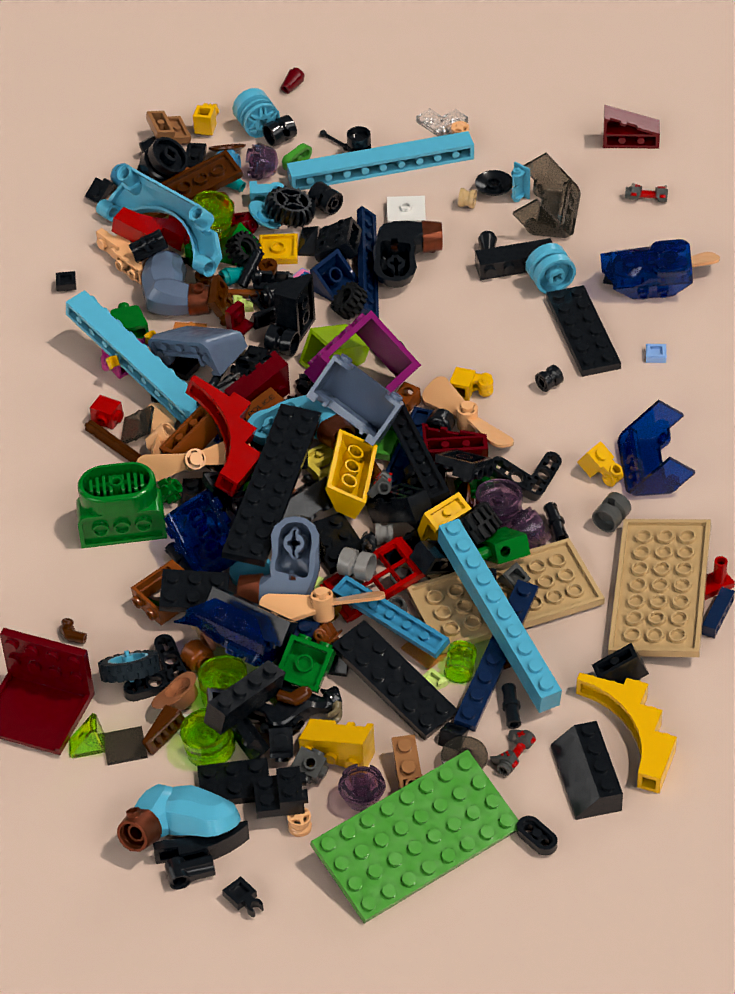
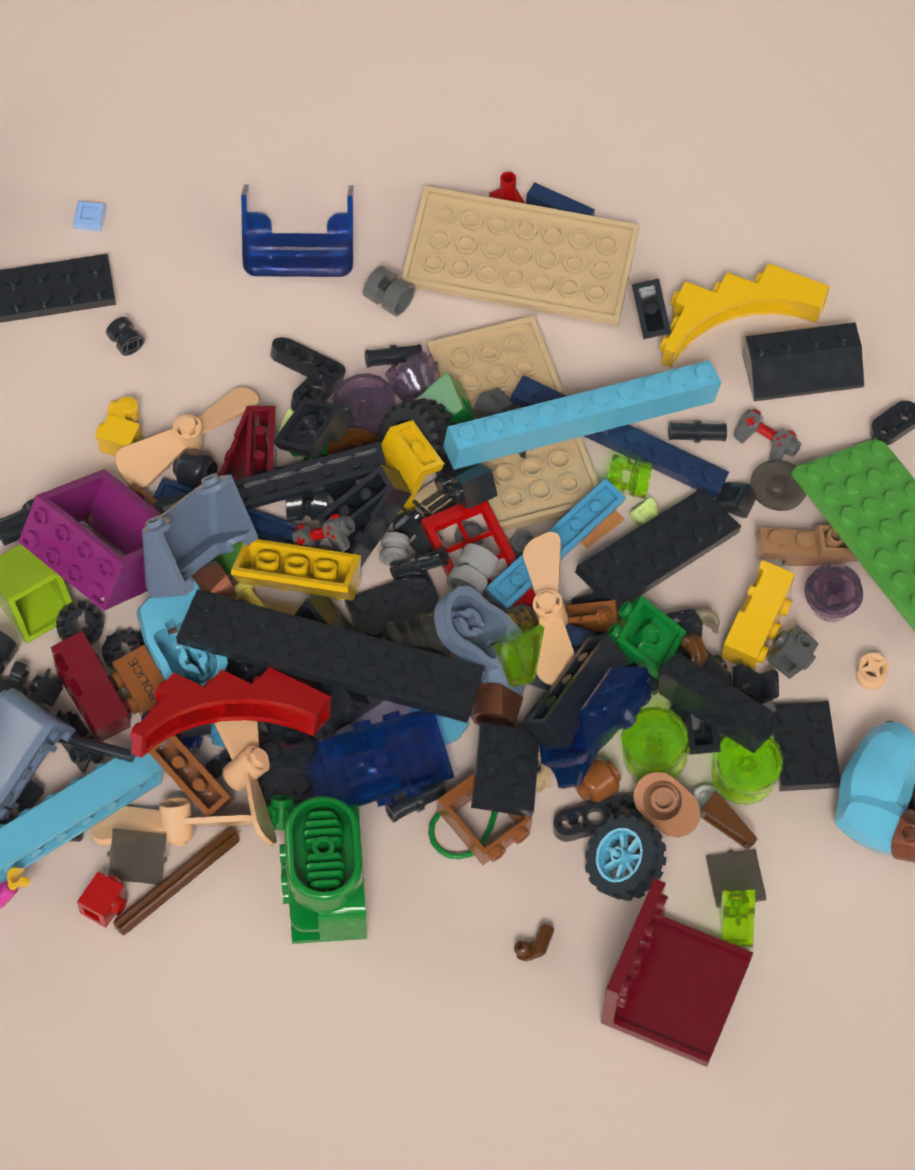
camera: 90 degrees left, 15 degrees up
(280, 793) = (844, 681): black plate -> none
(281, 583) = (520, 655): none -> clear neon green slope
(601, 460) = (298, 293): yellow brick -> none

